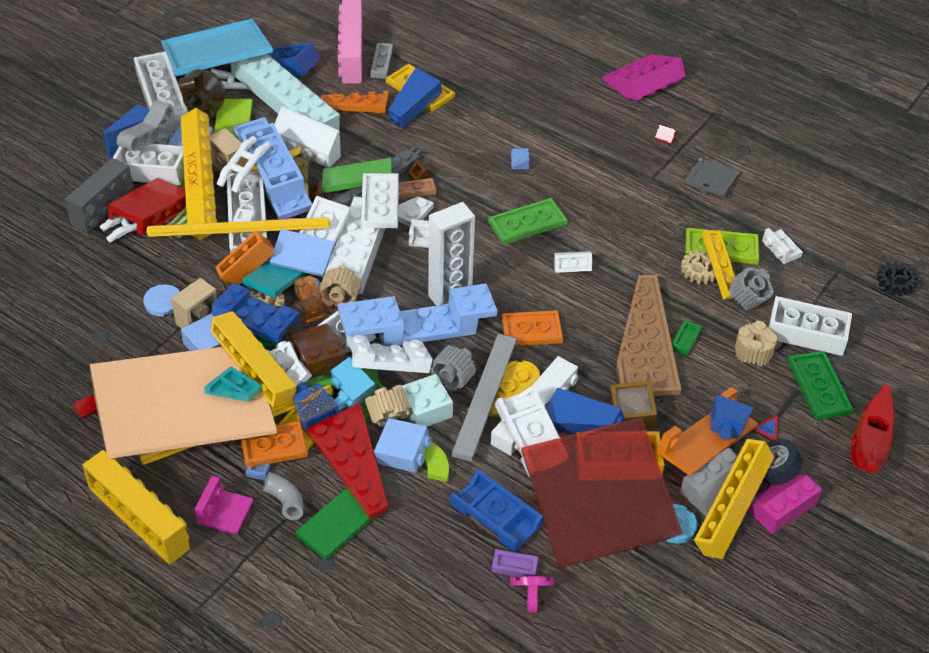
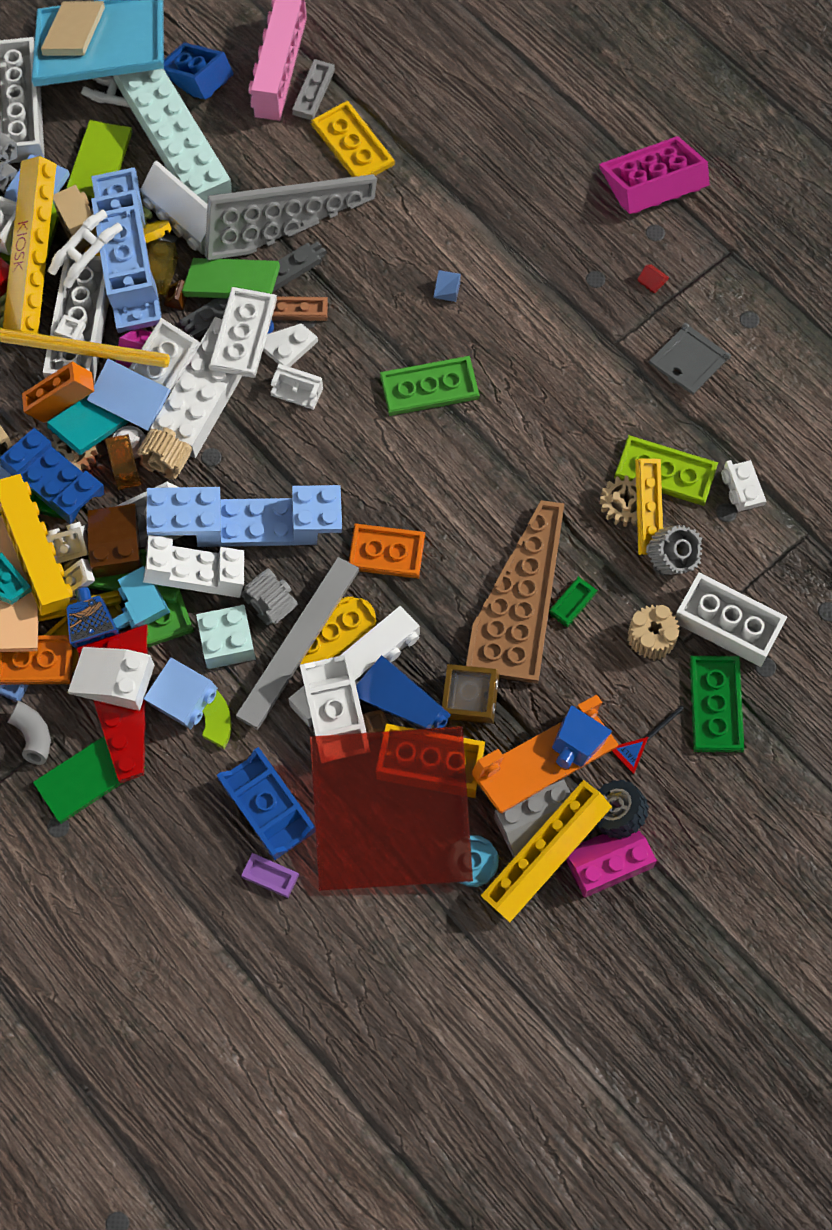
camera: 15 degrees right, 20 degrees up
(194, 43) = (73, 28): none -> tan tile
(207, 87) = (61, 120): dark brown piece -> none
(345, 438) = (112, 676): none -> white slope
(361, 103) = (264, 156): orange wing -> none
(370, 131) = (258, 217): none -> light grey wing
(388, 404) = (175, 638): tan brick -> none
(414, 97) = (340, 158): blue slope -> none
(419, 171) = (312, 283): reddish brown slope -> none
(450, 251) = (296, 445): white brick -> none
(532, 583) = (276, 910): dark pink tile -> none
(572, 261) = (465, 463): white hinge -> none
(874, 433) = (749, 798): red piece -> none

